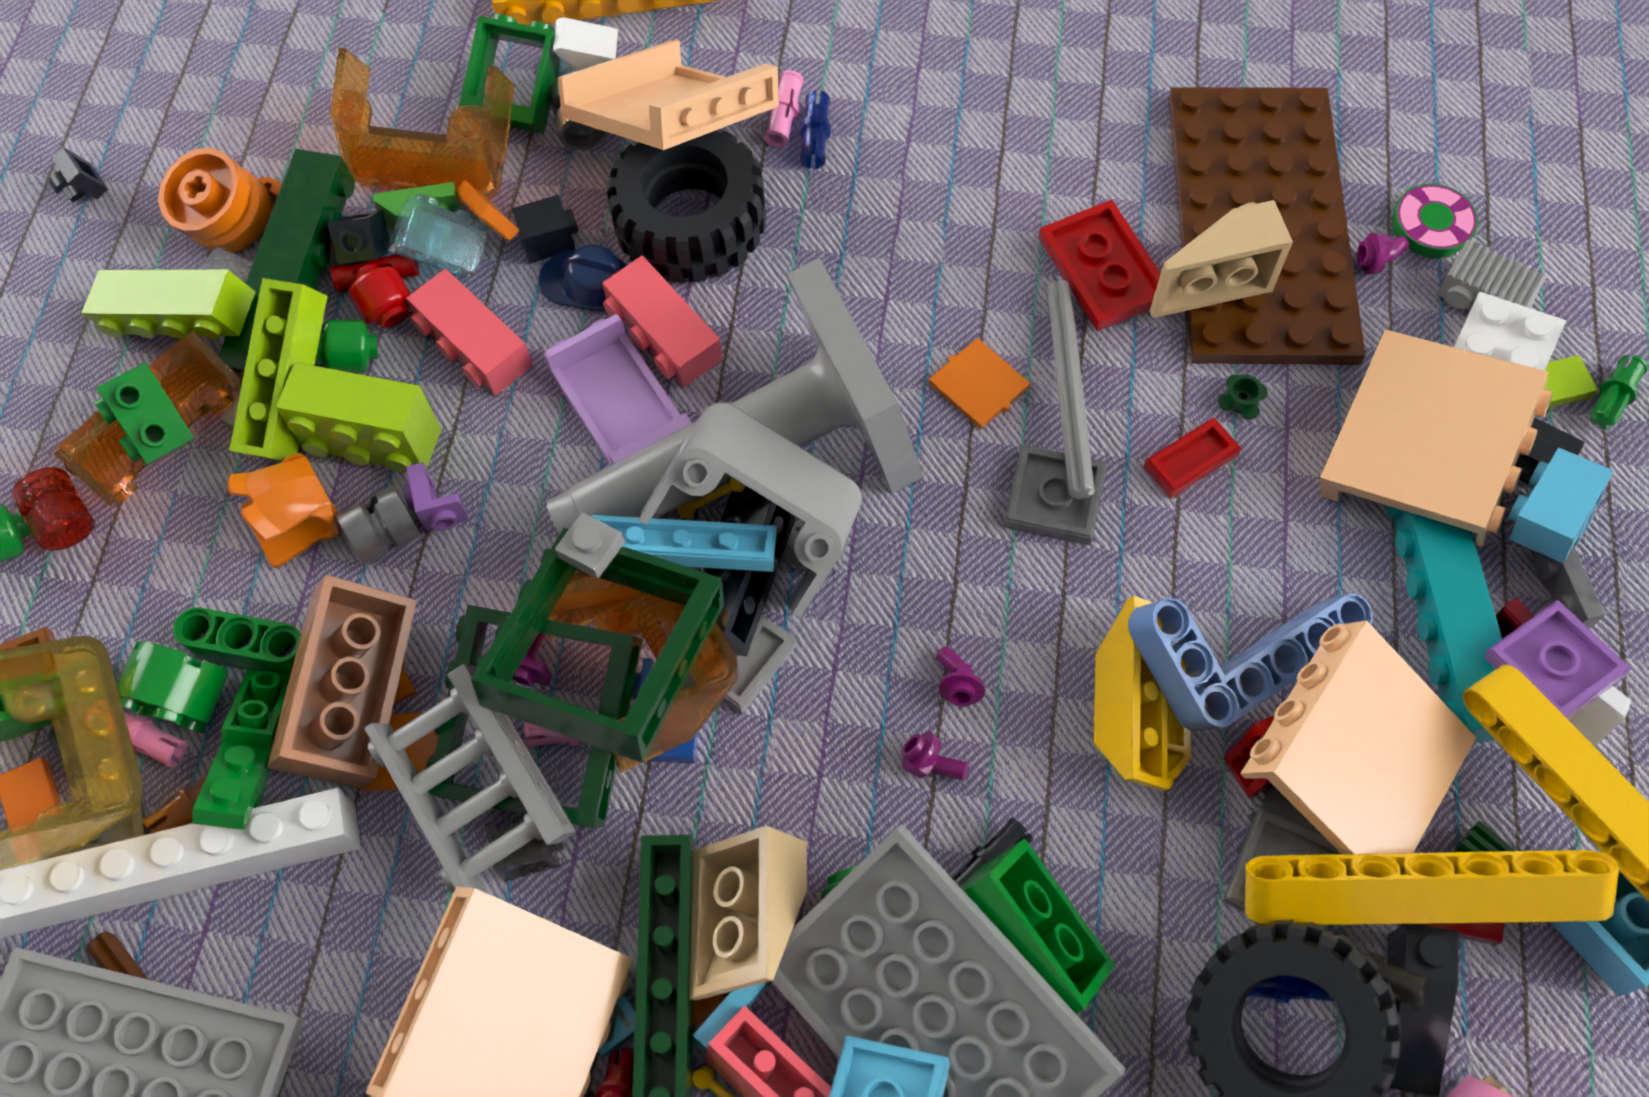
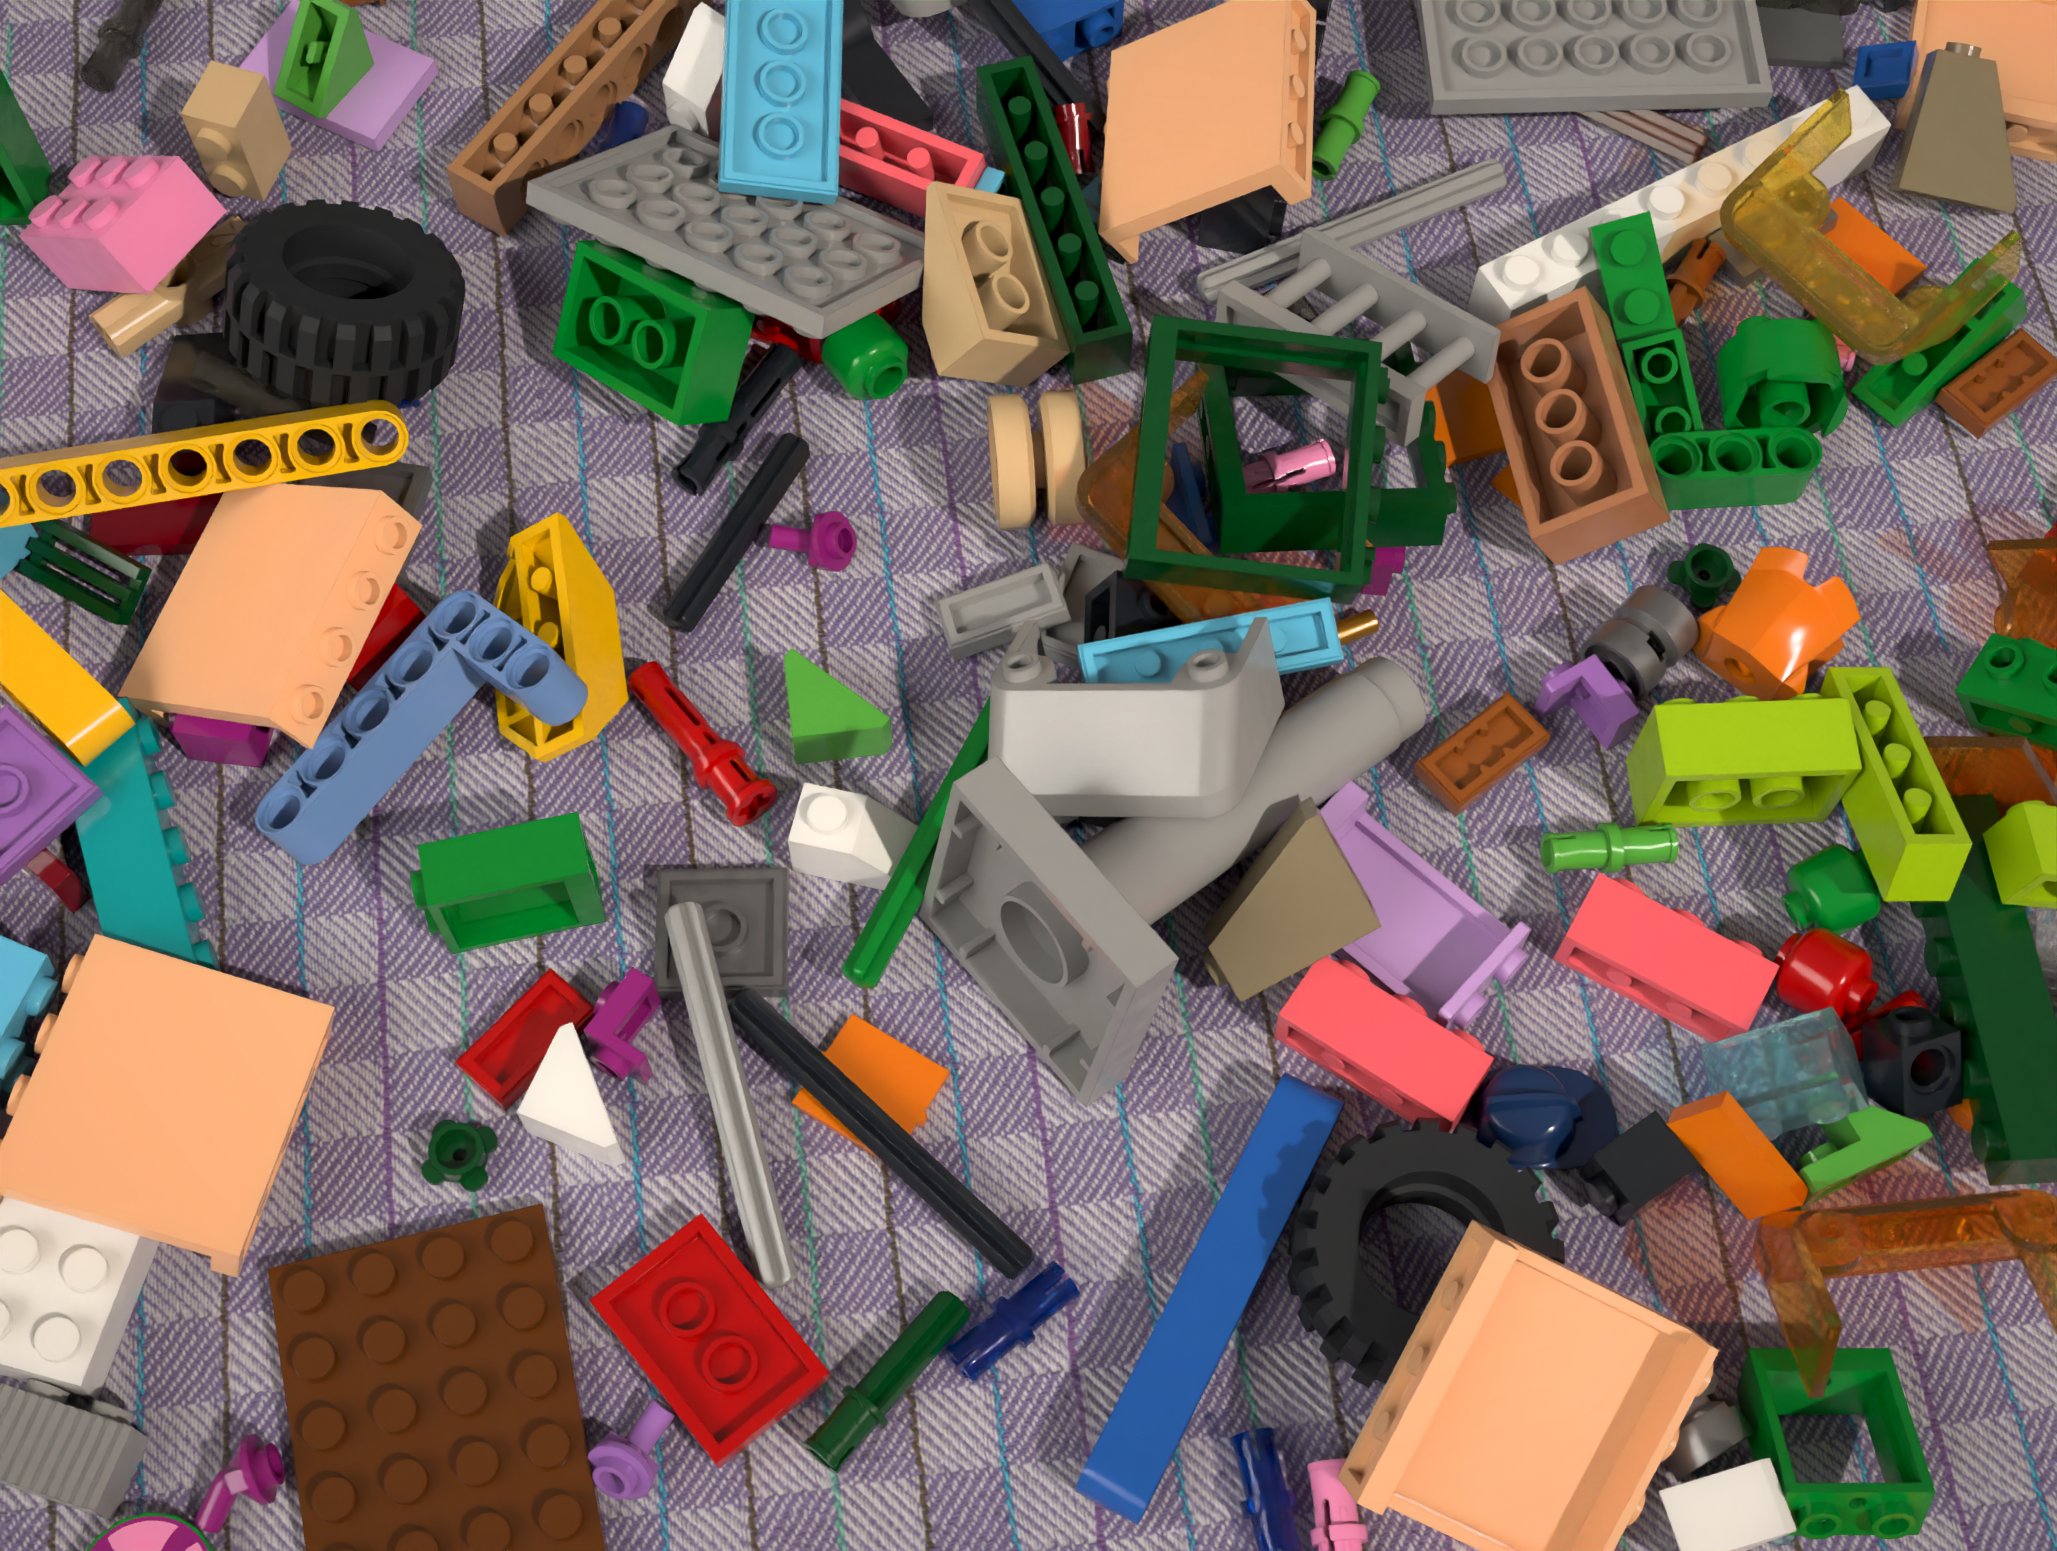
camera: 160 degrees right, 0 degrees up
(297, 567) = (1709, 561): none -> dark green plate
(363, 1061) = (1343, 123): none -> bright green pin
(384, 940) = (1359, 227): none -> light grey axle
(470, 409) = (1609, 847): none -> bright green pin
(518, 486) = (1481, 753): none -> dark orange plate
(590, 545) = (1314, 555): light grey plate -> none
(680, 387) = (1288, 908): none -> dark tan slope
(742, 753) = (1037, 459): none -> tan wheel
(806, 226) = (1209, 1299): none -> blue beam
(808, 664) = (996, 610): none -> light grey tile
(894, 517) = (909, 881): none -> green axle
(927, 238) = (1012, 1322): none -> clear blue pin
(954, 611) = (829, 717): none -> bright green slope
(955, 521) = (847, 837): none -> white slope
(960, 685) = (797, 627): magenta plate -> none
(984, 351) = (881, 1134): none -> black axle
(989, 784) = (736, 533): none -> black axle
(1018, 217) = (886, 1381): none -> dark green axle
(1033, 601) = (715, 761): none -> red pin
(1137, 437) = (618, 1019): none -> magenta bracket
(1161, 218) = (628, 1458): none -> medium lavender plate
(1169, 399) = (566, 1102): none -> white slope
(1196, 526) = (509, 883): none -> green window
(1225, 262) = (505, 1314): tan slope -> none

